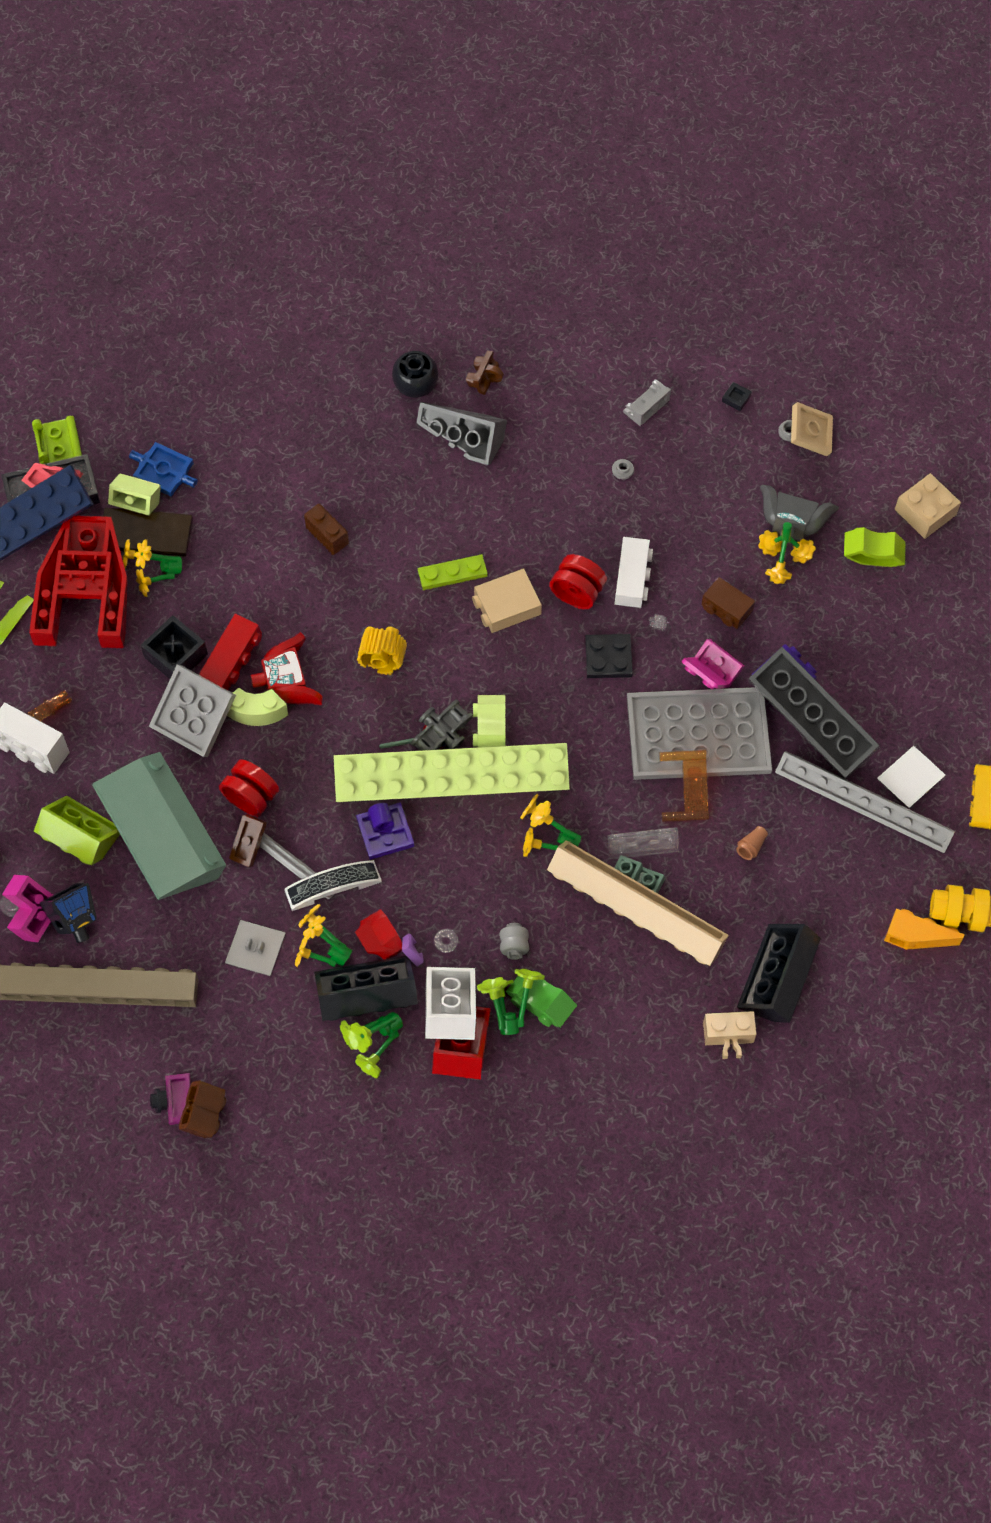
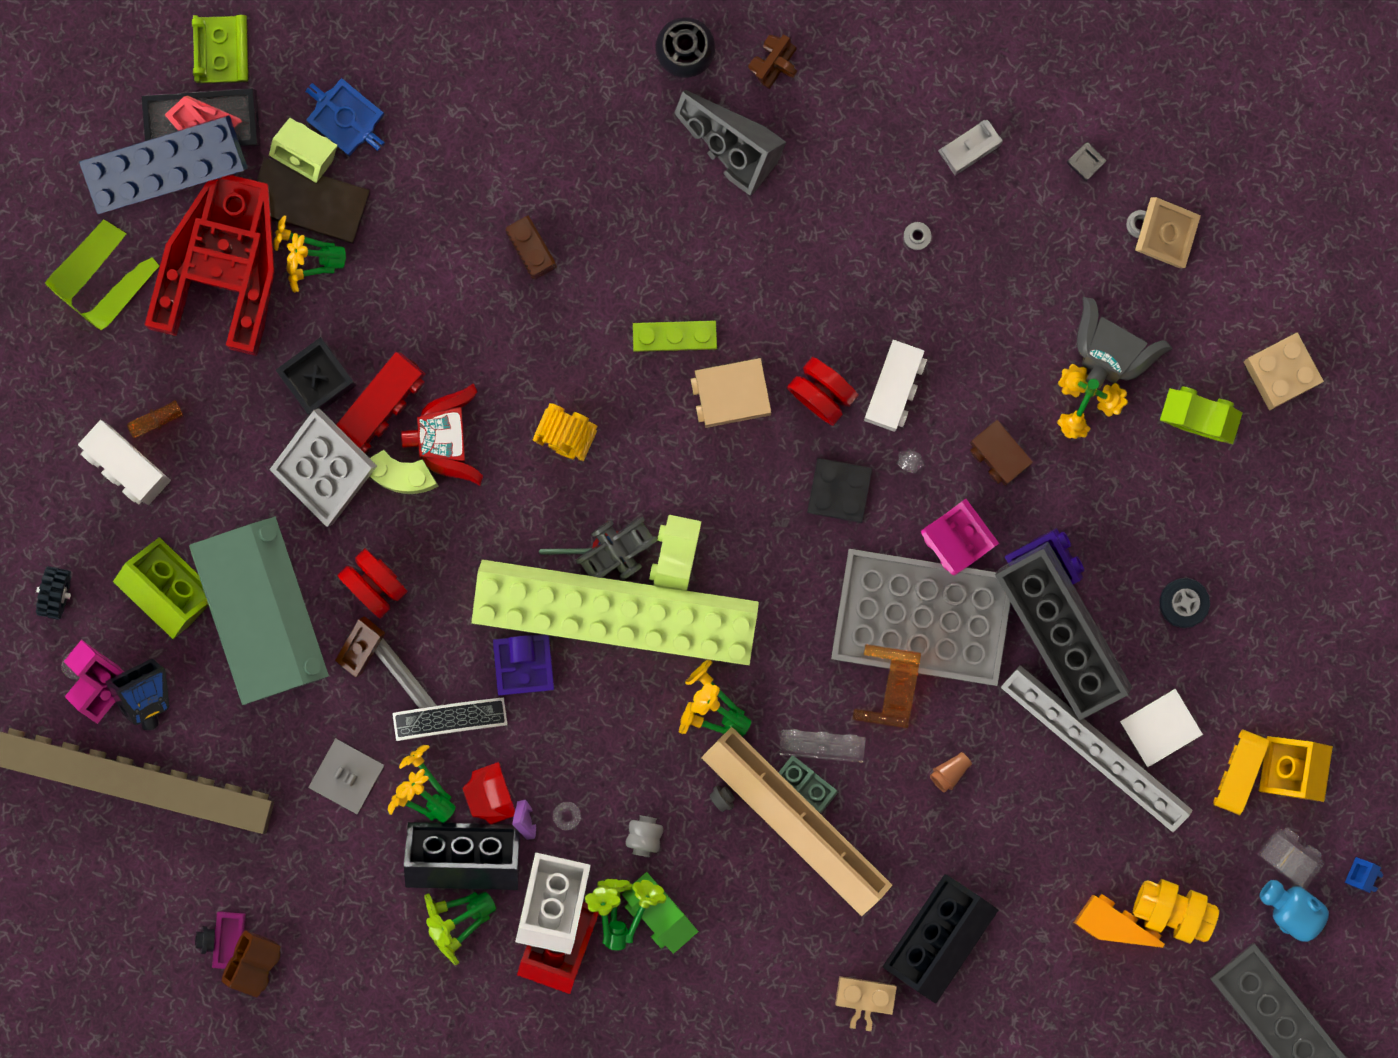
camera: 15 degrees right, 20 degrees up
(572, 899) = (722, 798): none -> dark grey plate
(901, 674) = (1194, 600): none -> black wheel

